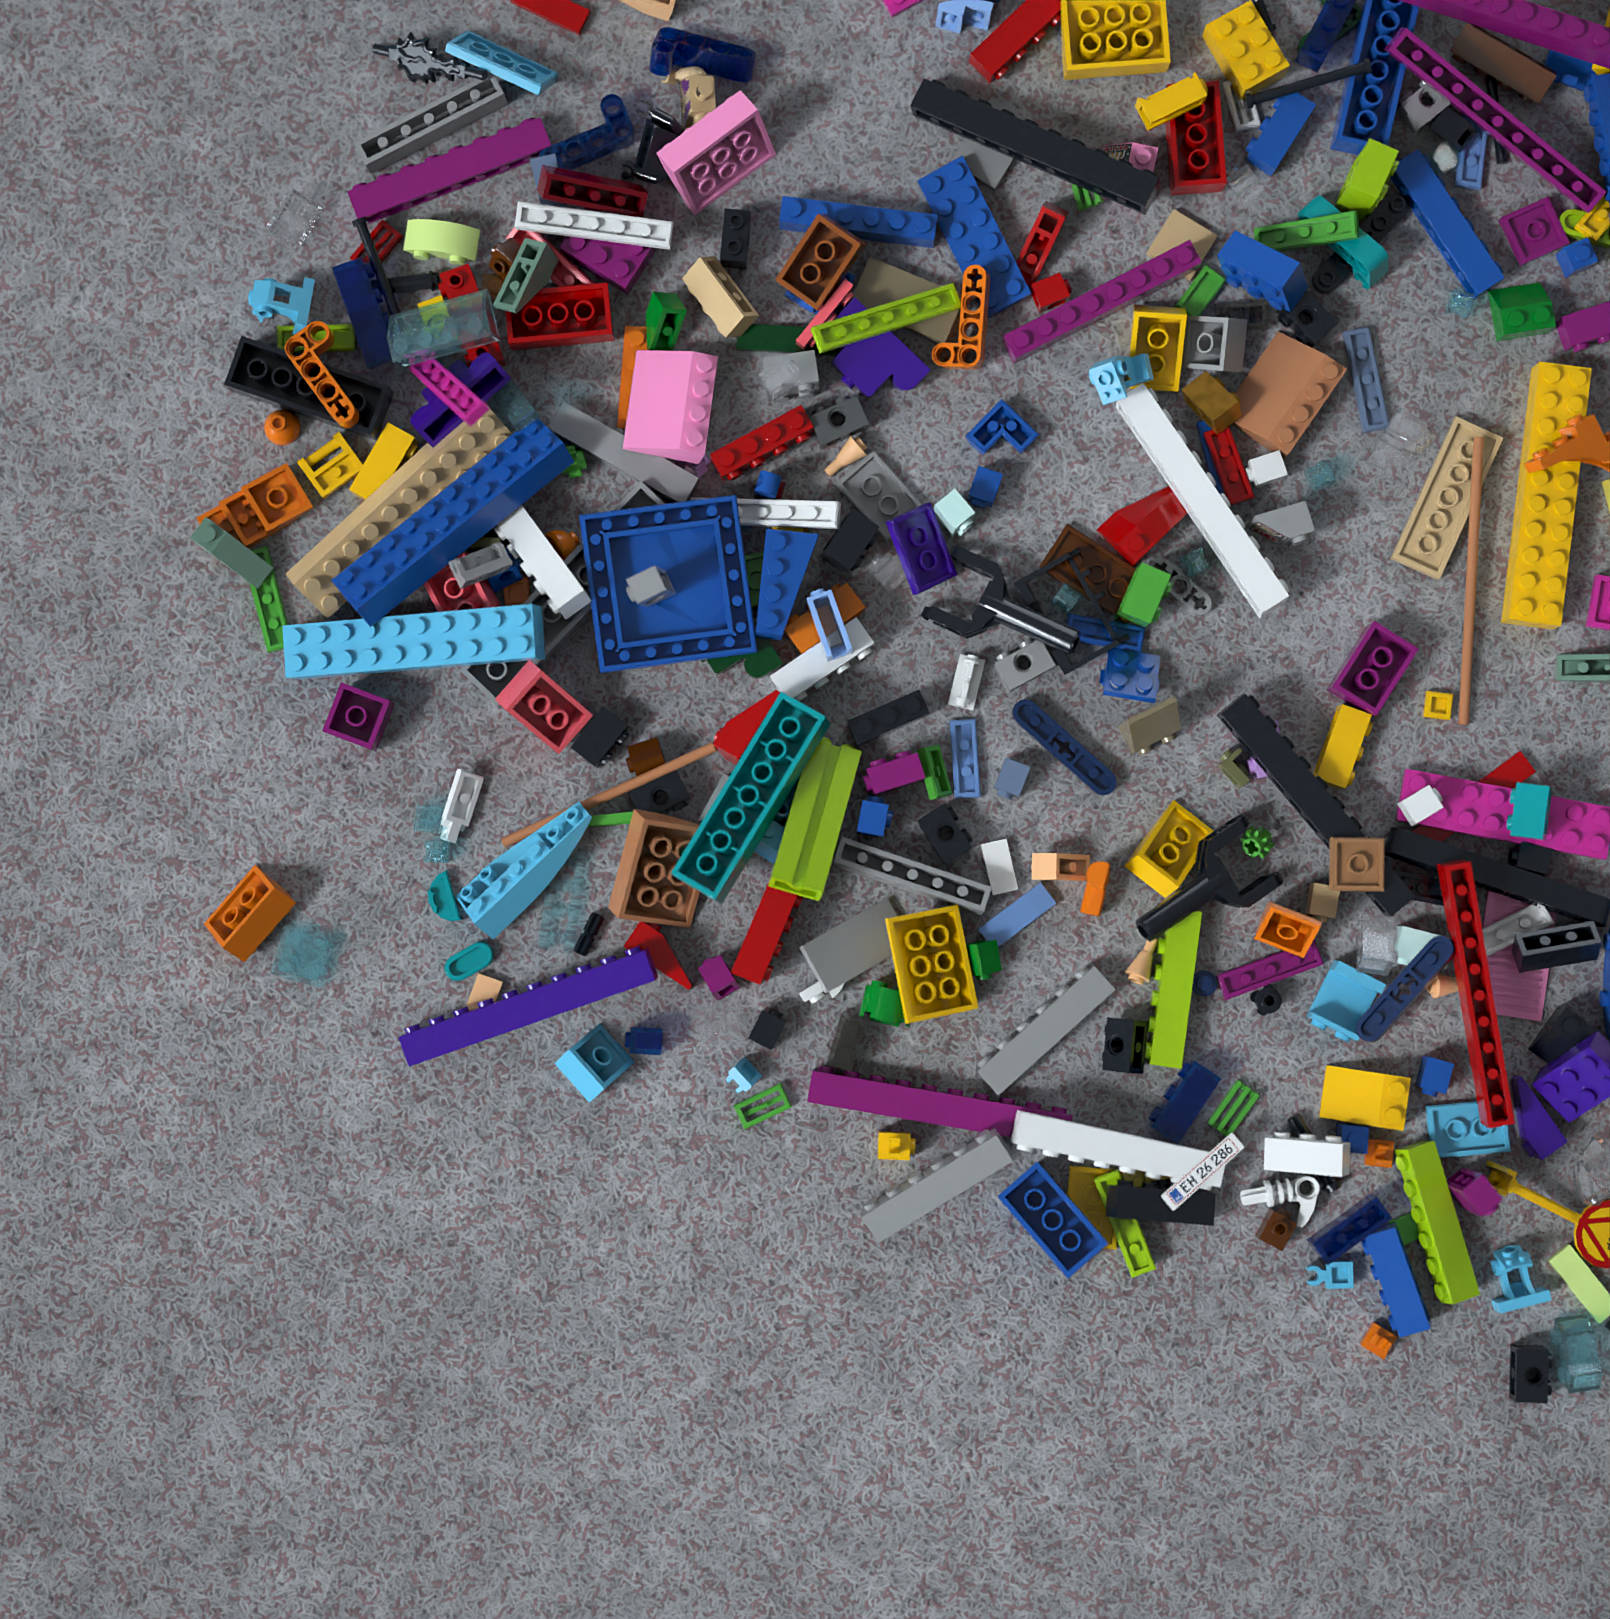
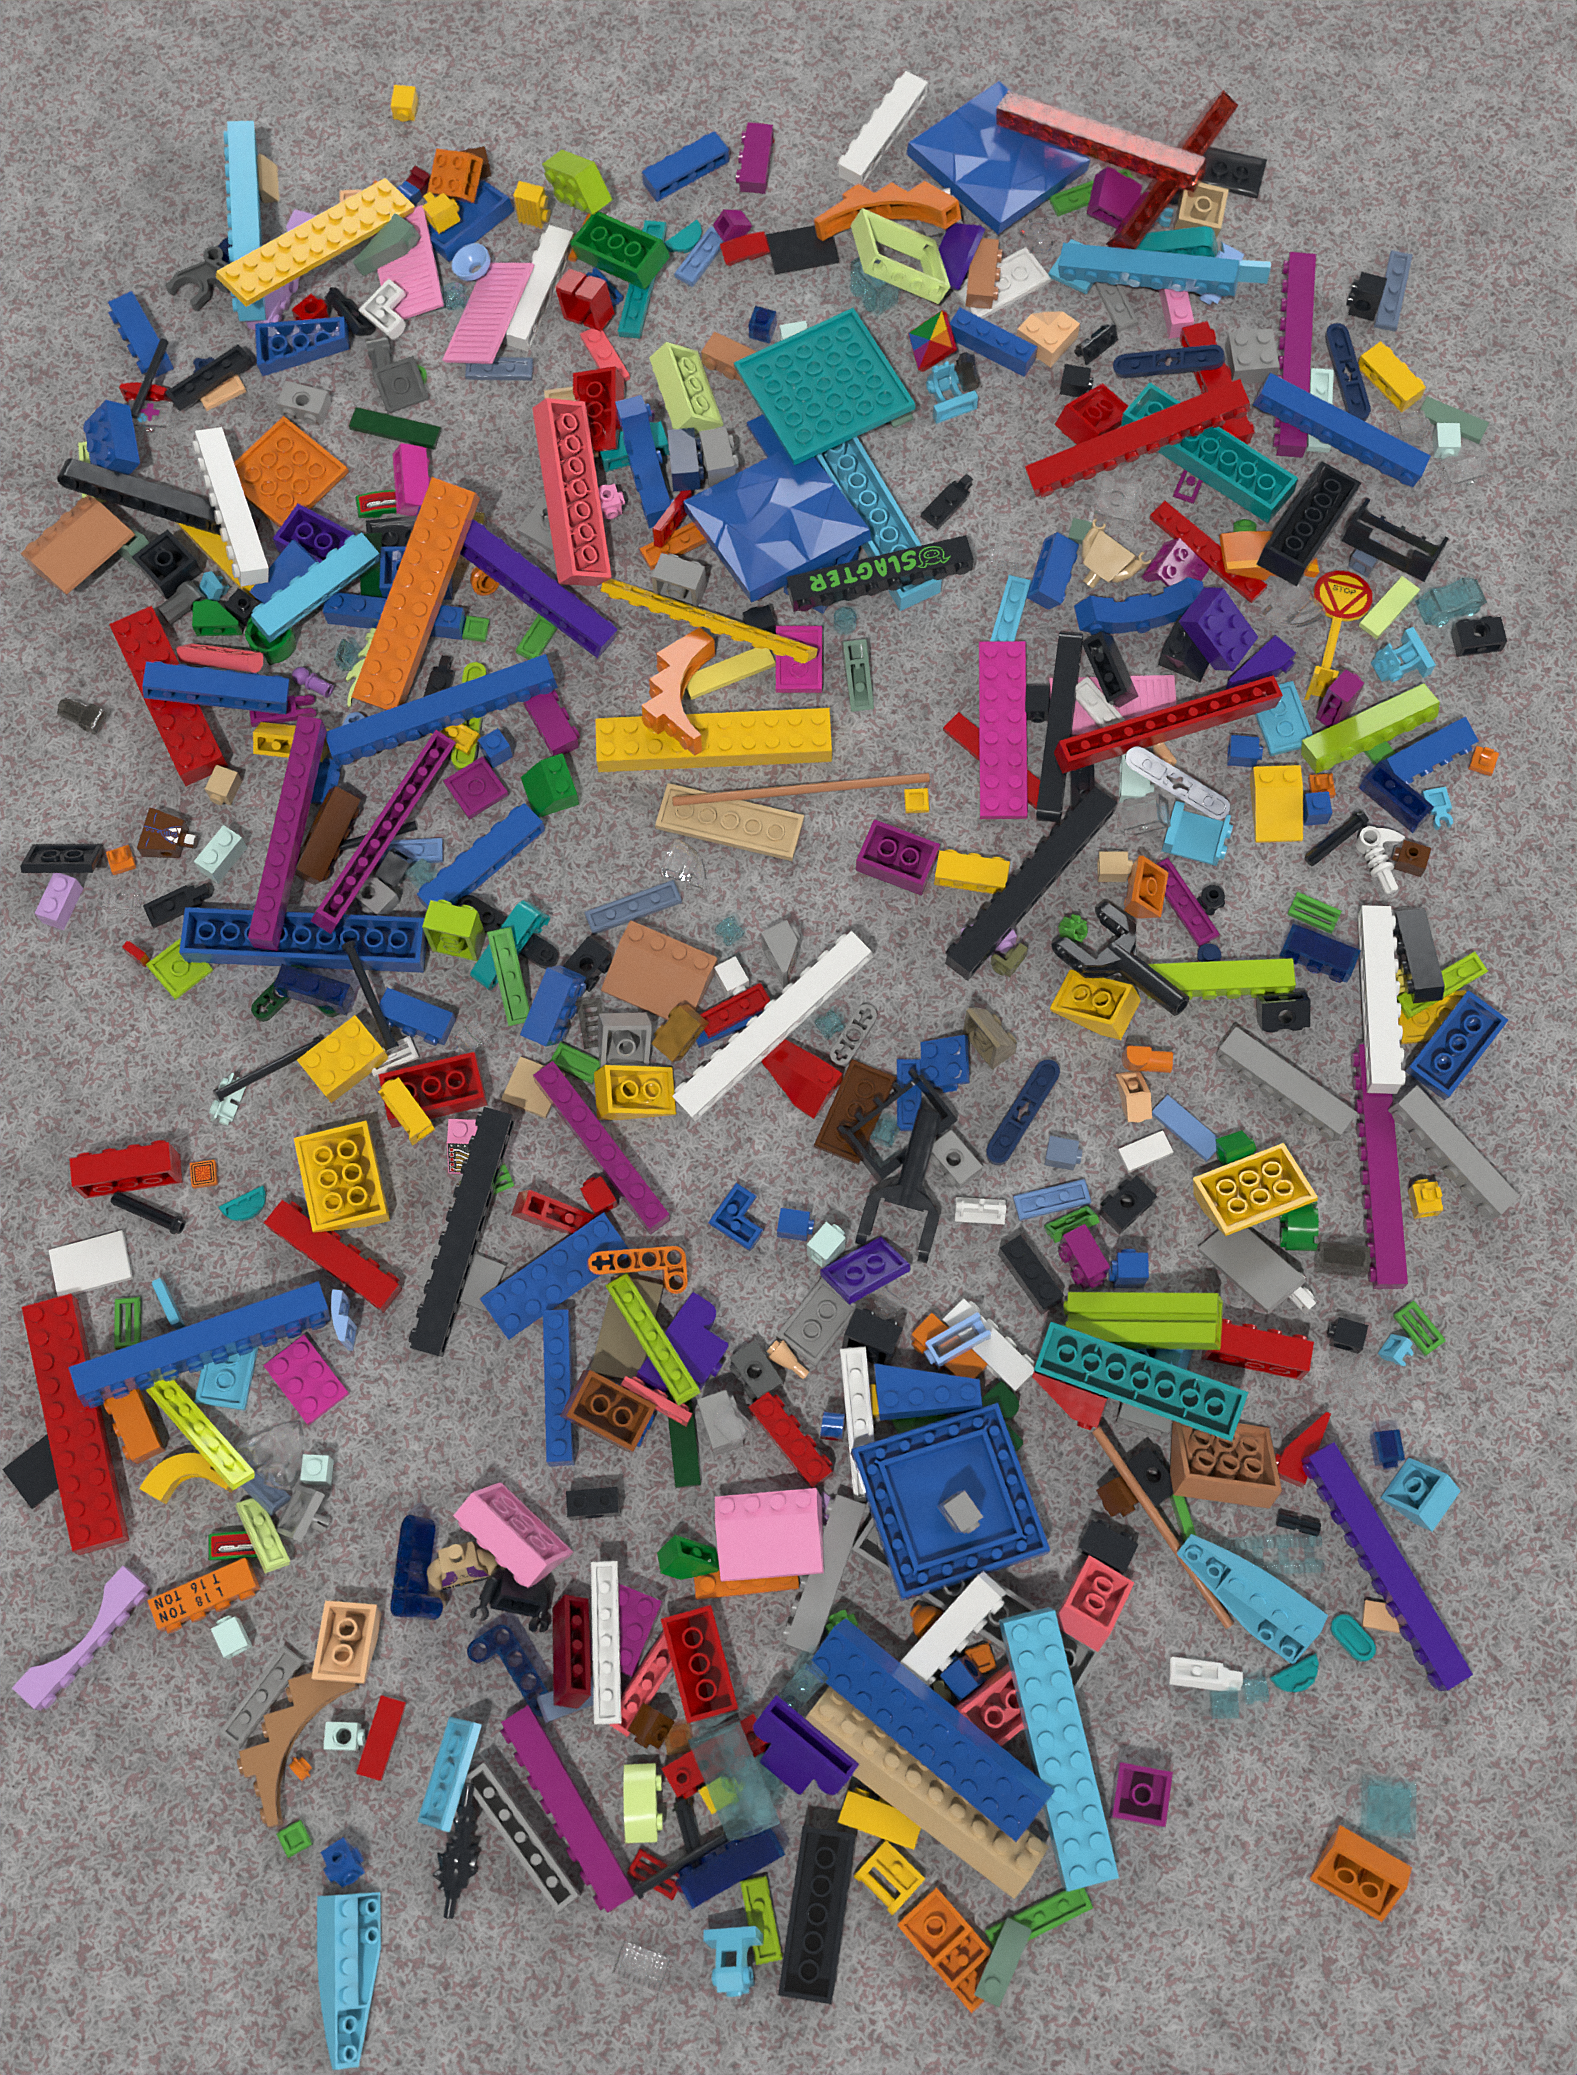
camera: 105 degrees left, 15 degrees down
(282, 427) = (859, 1939): orange brick -> none
(324, 379) = (809, 1891): orange beam -> none
(450, 390) = (802, 1751): dark pink tile -> none
(480, 565) = (968, 1690): light grey hinge -> none
(526, 276) = (670, 1701): sand green slope -> none
(718, 977) = (1310, 1389): magenta brick -> none
(720, 297) = (654, 1506): tan brick -> none
(911, 876) = (1175, 1222): light grey brick -> none
(1109, 375) = (672, 1121): medium azure tile -> none
(1140, 968) = (1209, 1010): light nougat cone -> none
(1144, 594) = (872, 1059): bright green brick -> none
(1202, 1171) = (1381, 923): white sticker -> none
(1307, 1154) = (1342, 840): white brick -> none
(1356, 864) = (1079, 837): medium nougat tile -> none
(1421, 804) = (1012, 795): white brick -> none
(1459, 303) = (551, 838): clear light blue wheel -> none
(1530, 811) = (1000, 703): teal brick -> none

